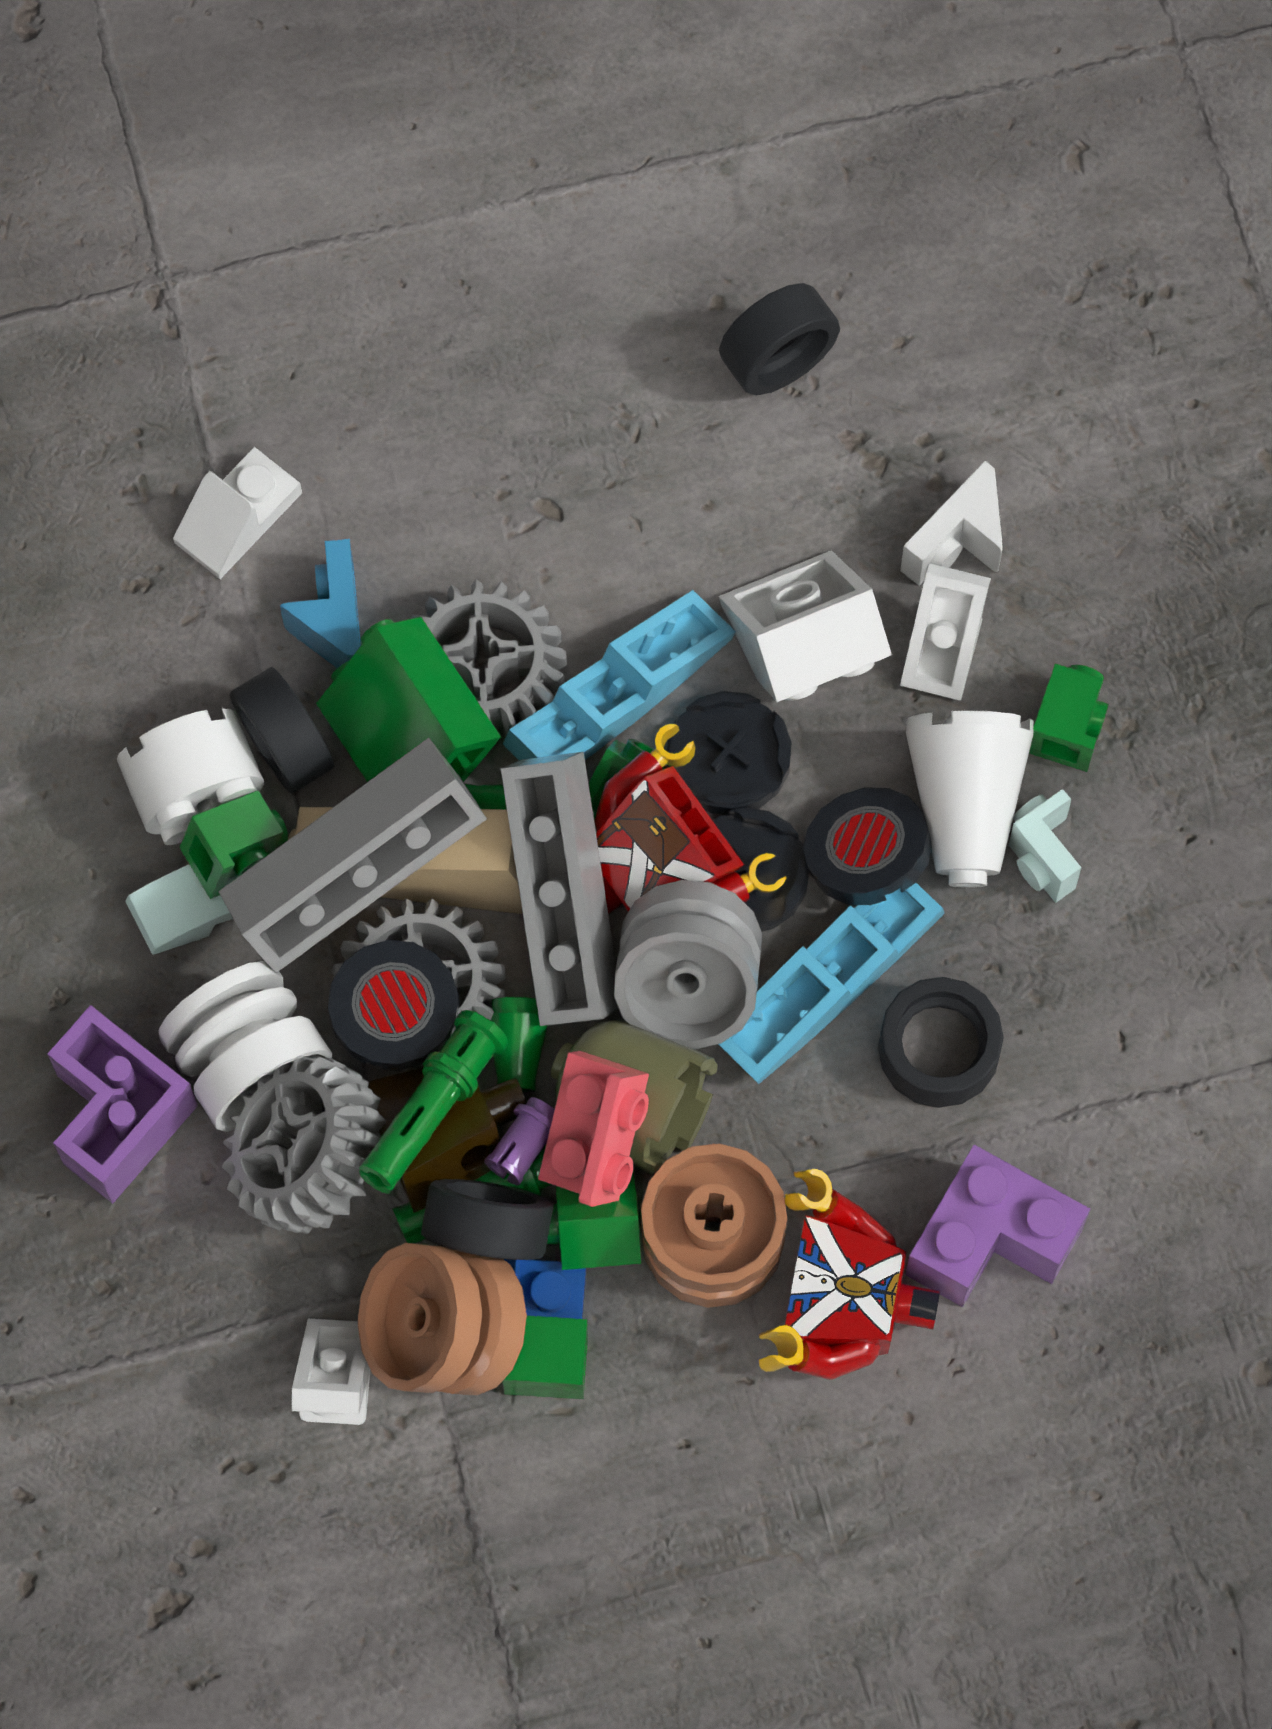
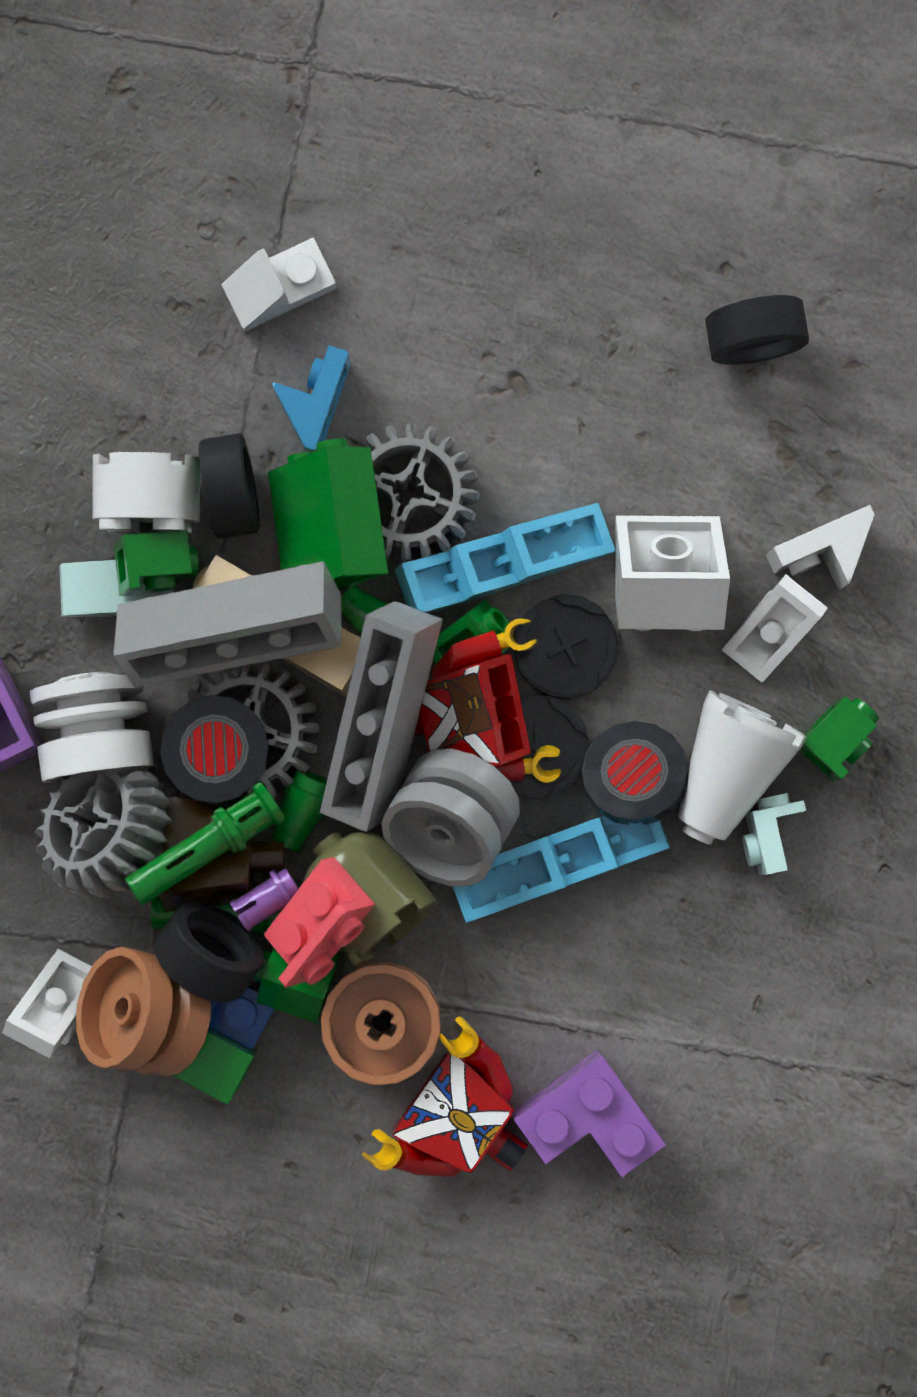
camera: 20 degrees right, 15 degrees up
(951, 995) = (659, 951): black tyre -> none

